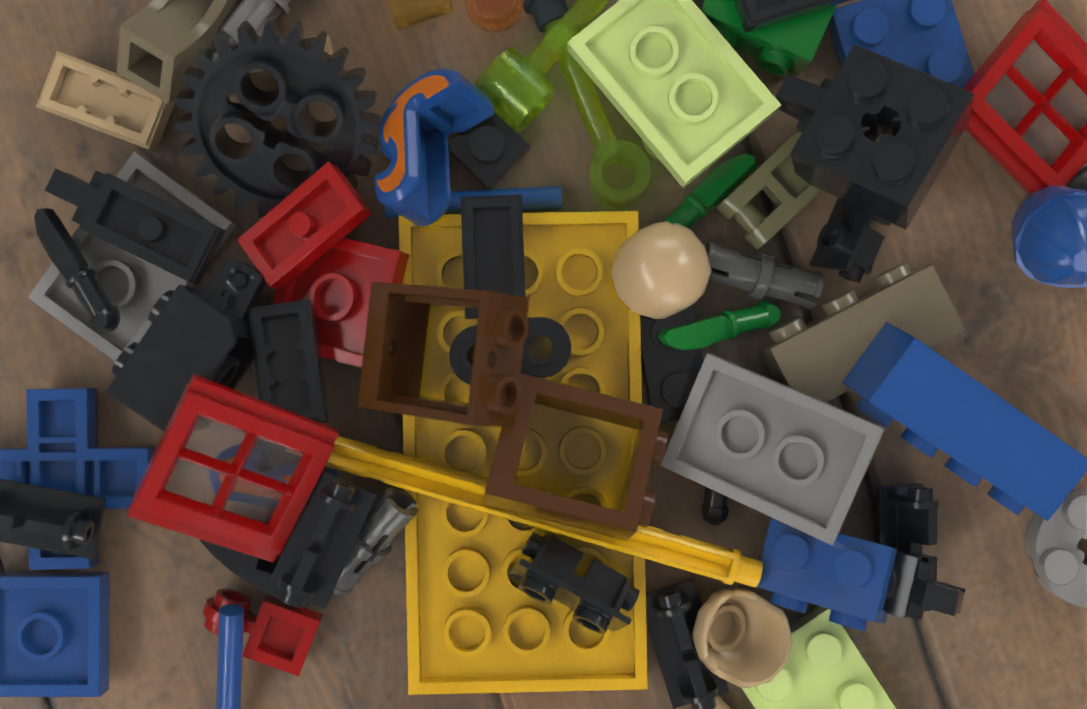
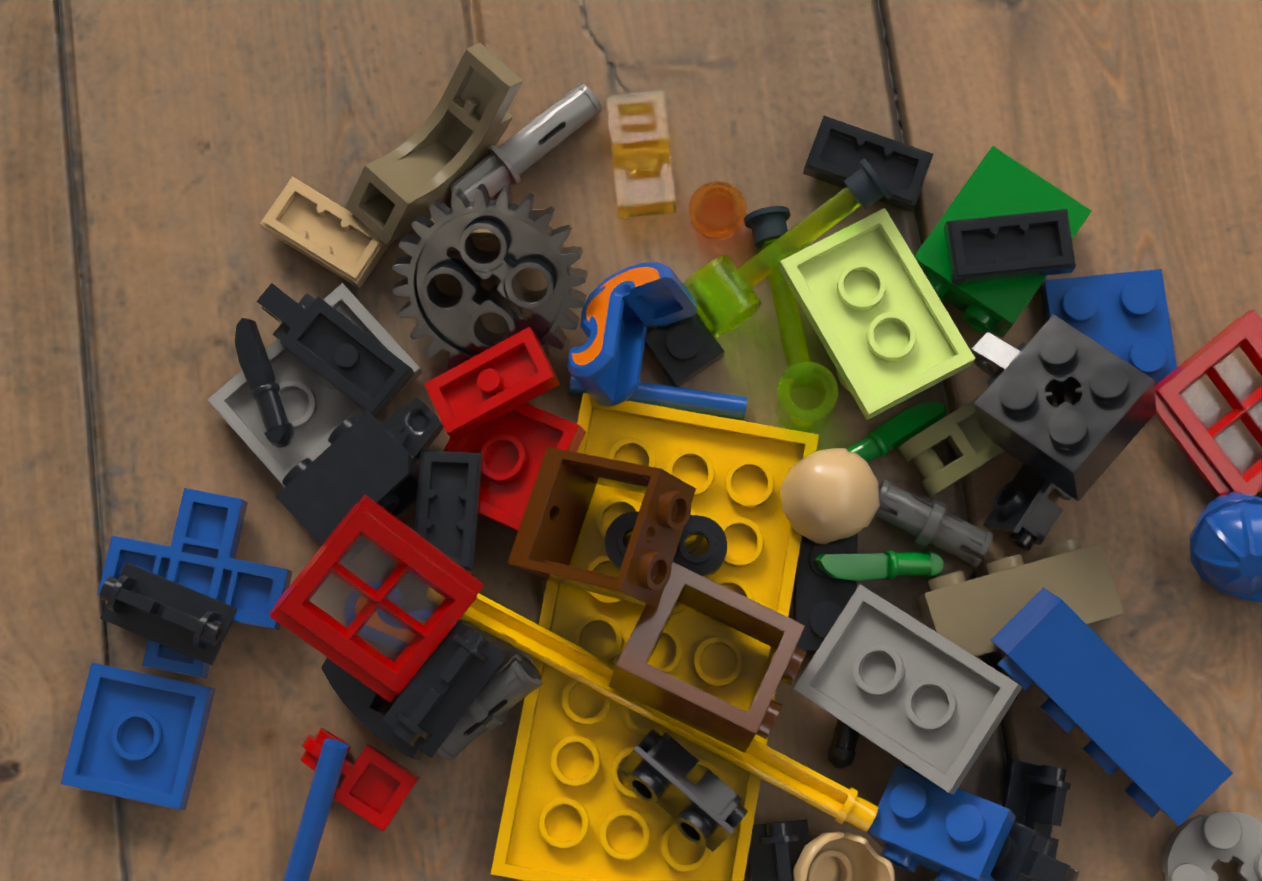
camera: 10 degrees right, 10 degrees down
(493, 245) = (670, 434): black tile -> none

